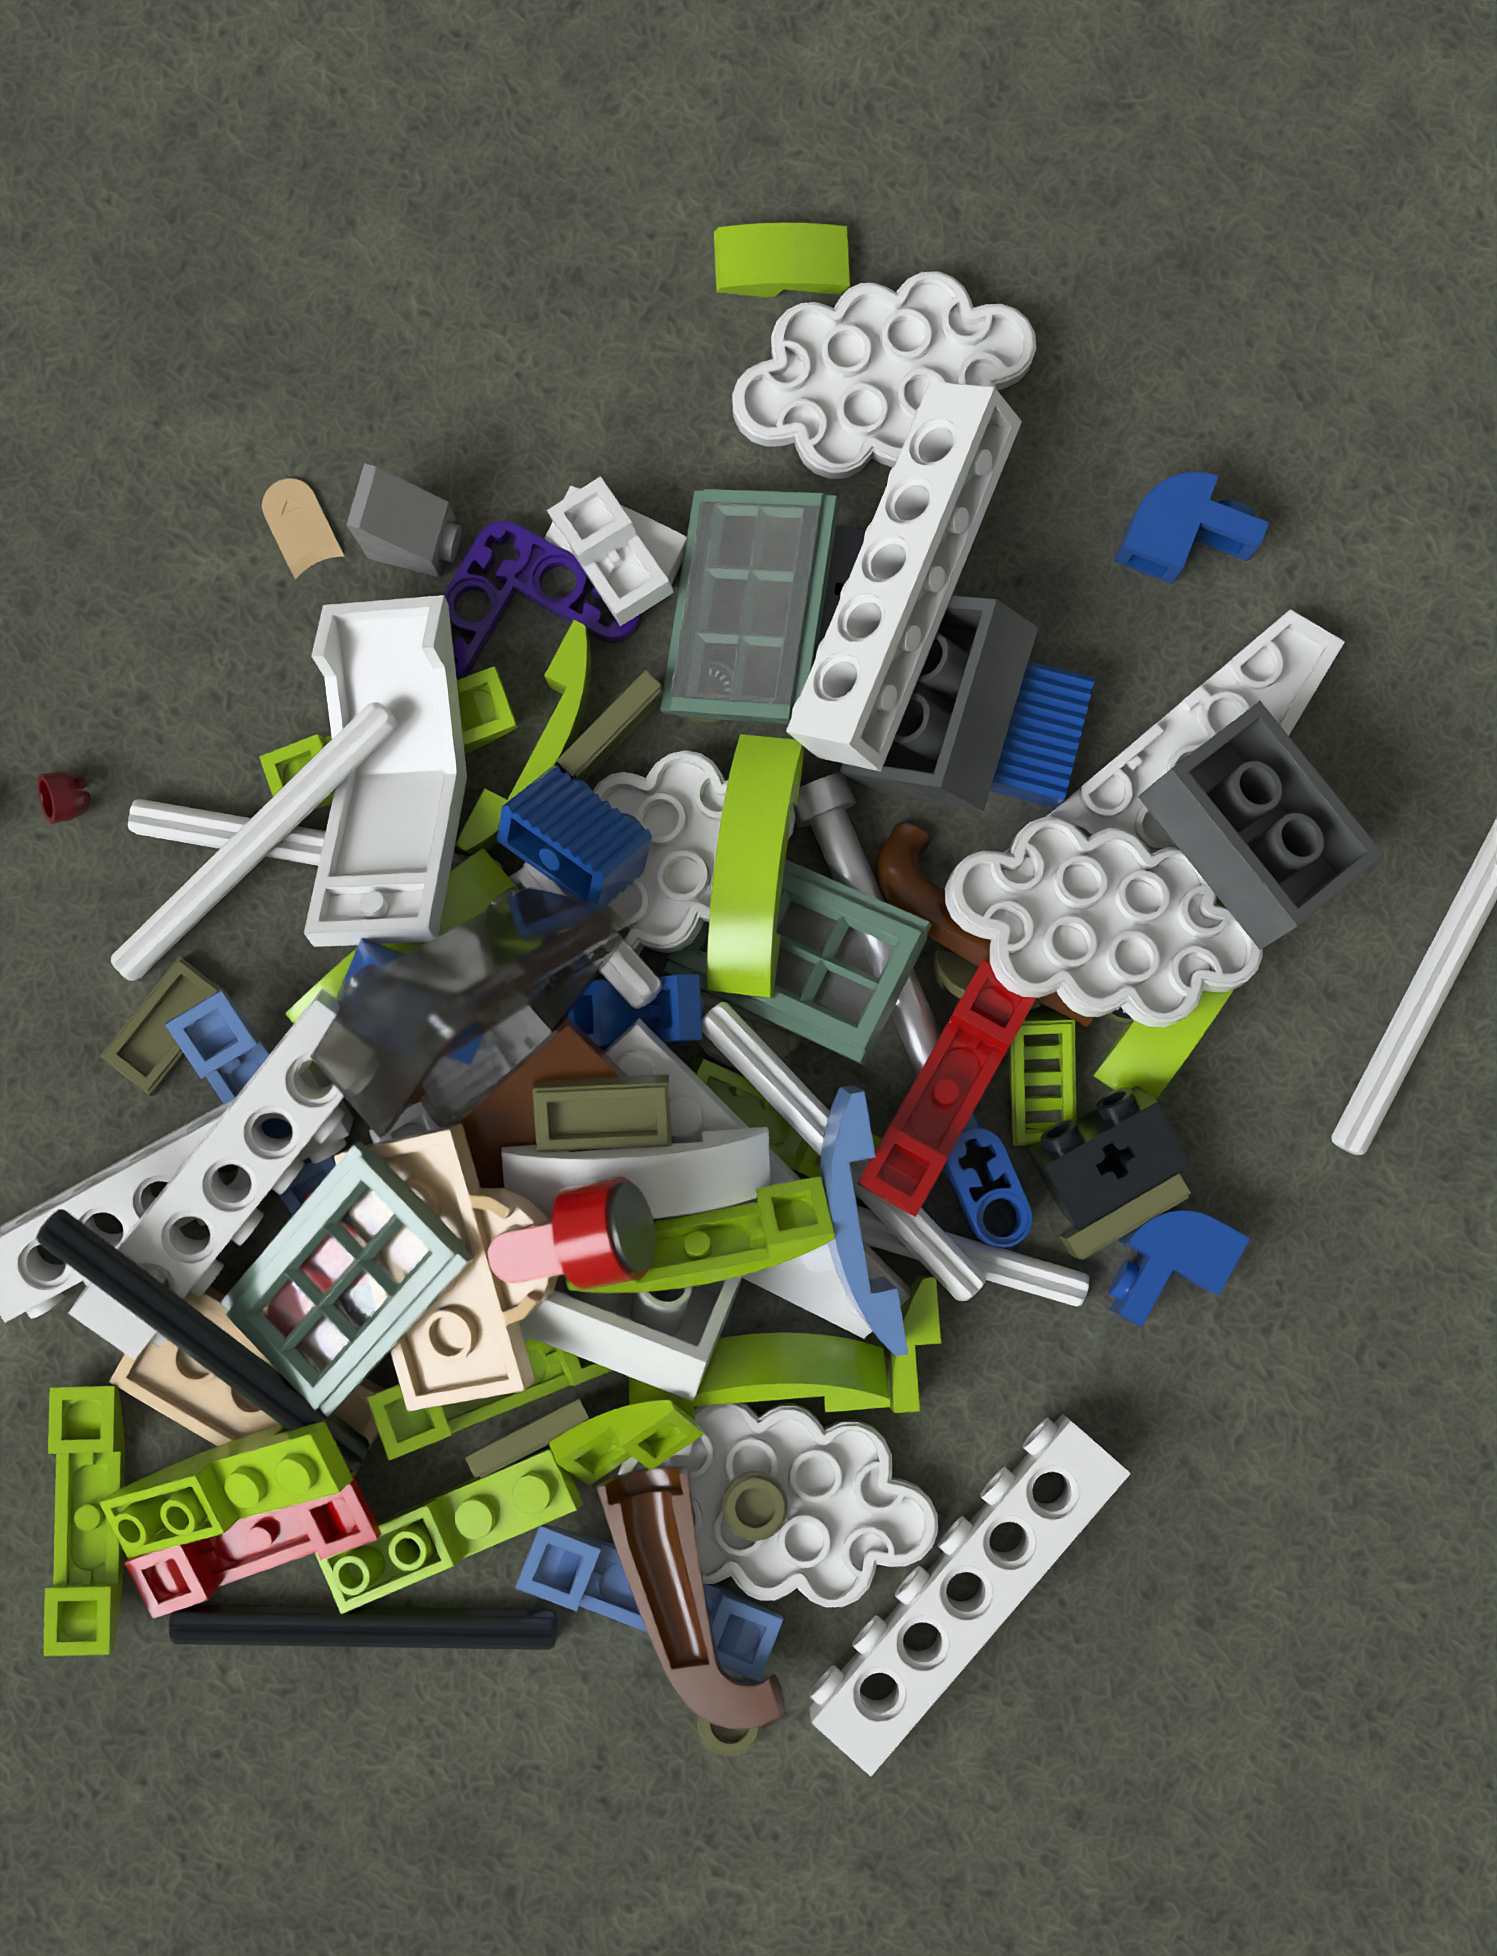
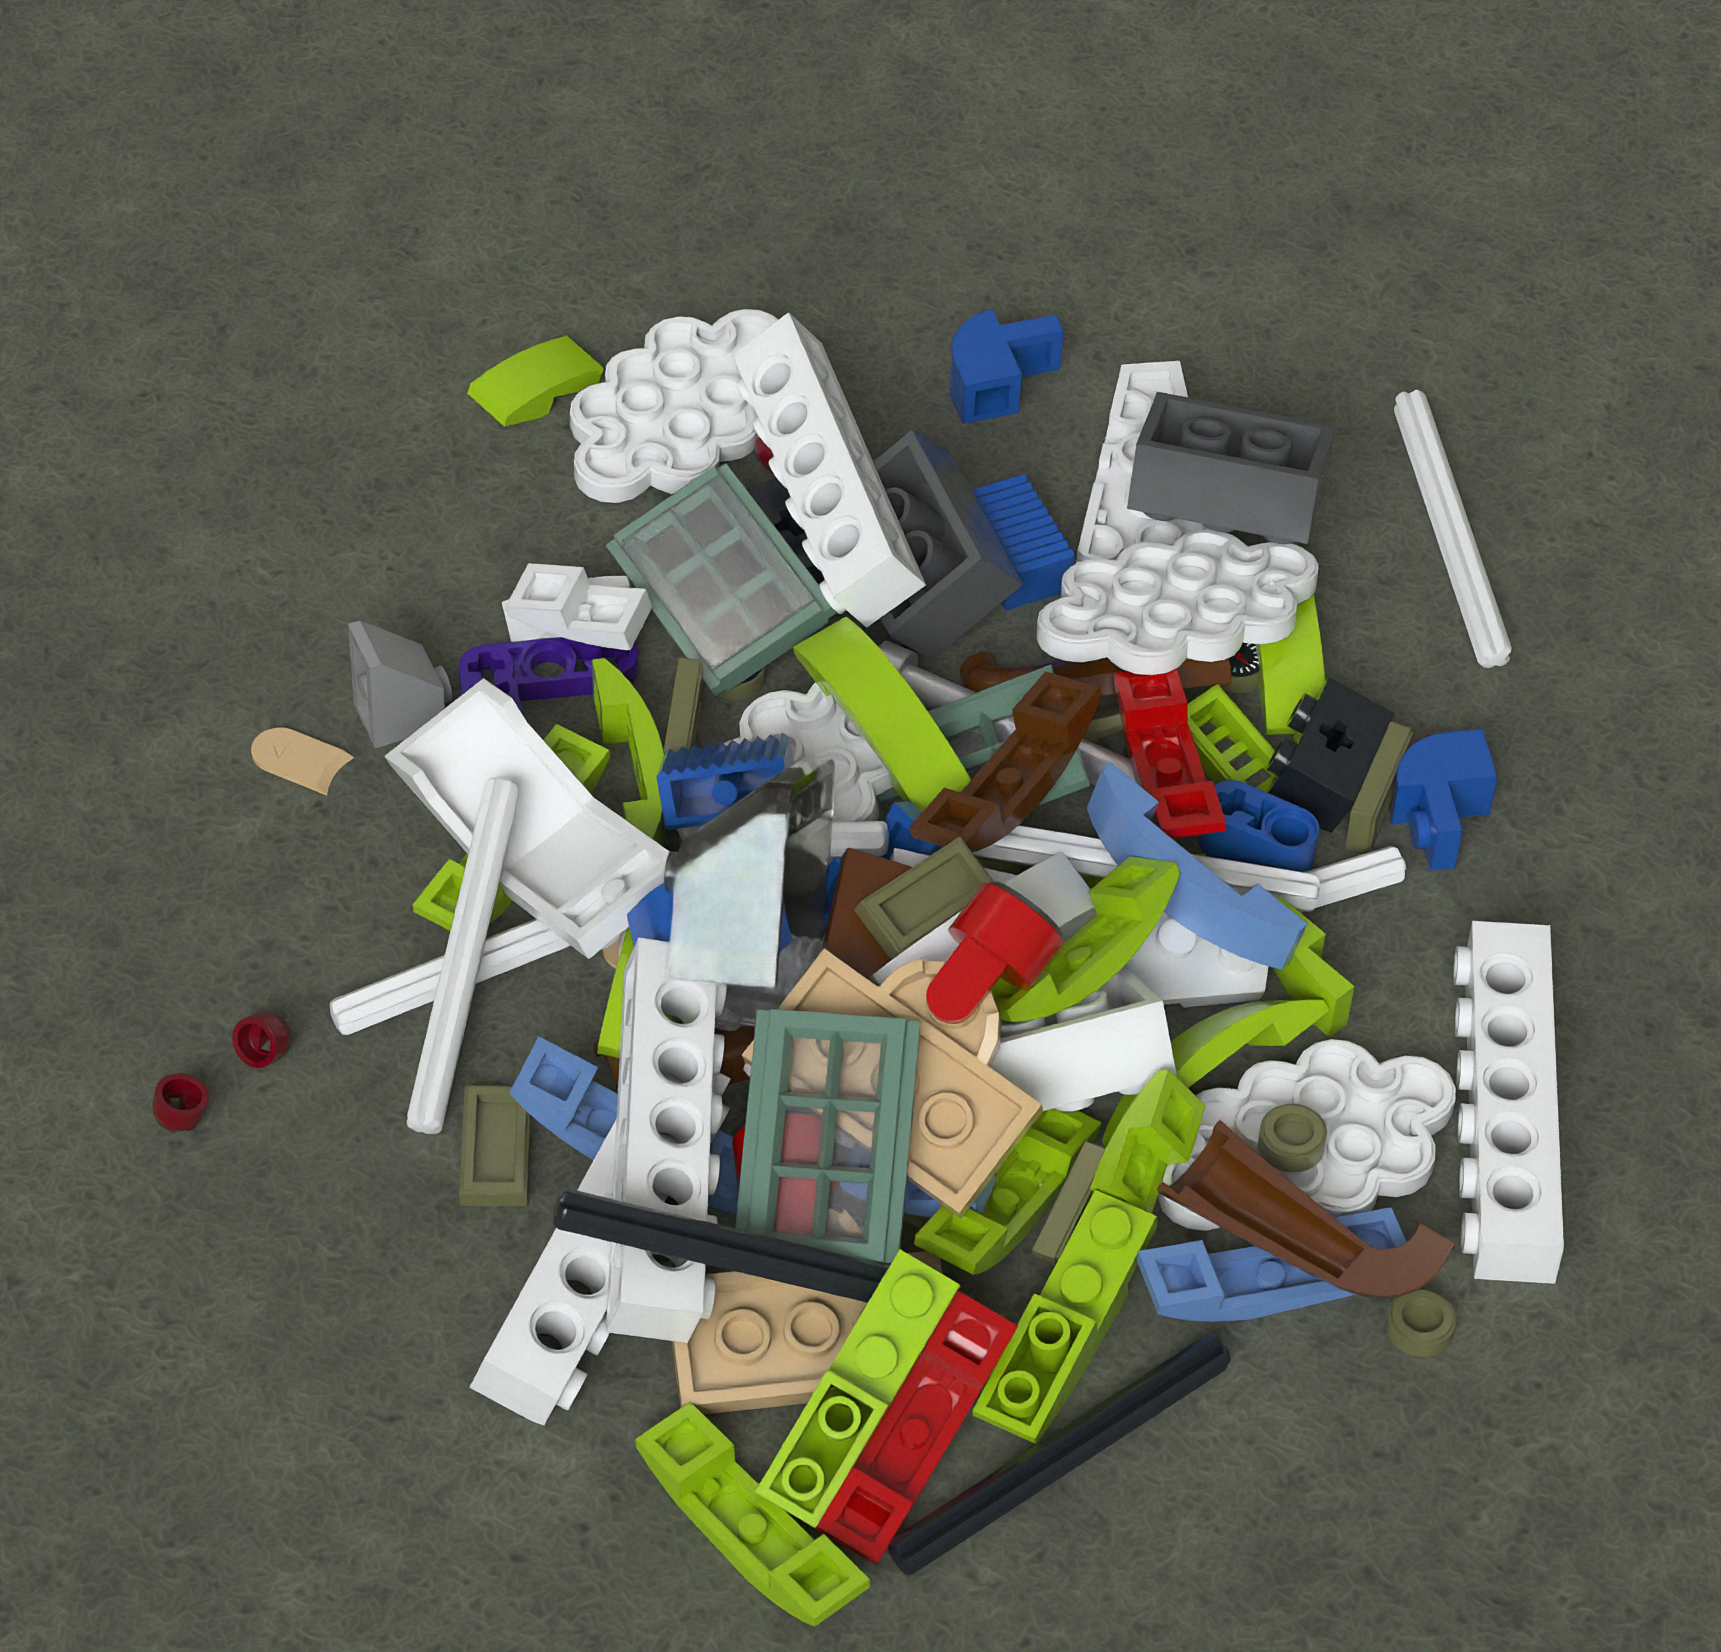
camera: 40 degrees left, 35 degrees down
(791, 1022) = (1020, 773): none -> reddish brown slope

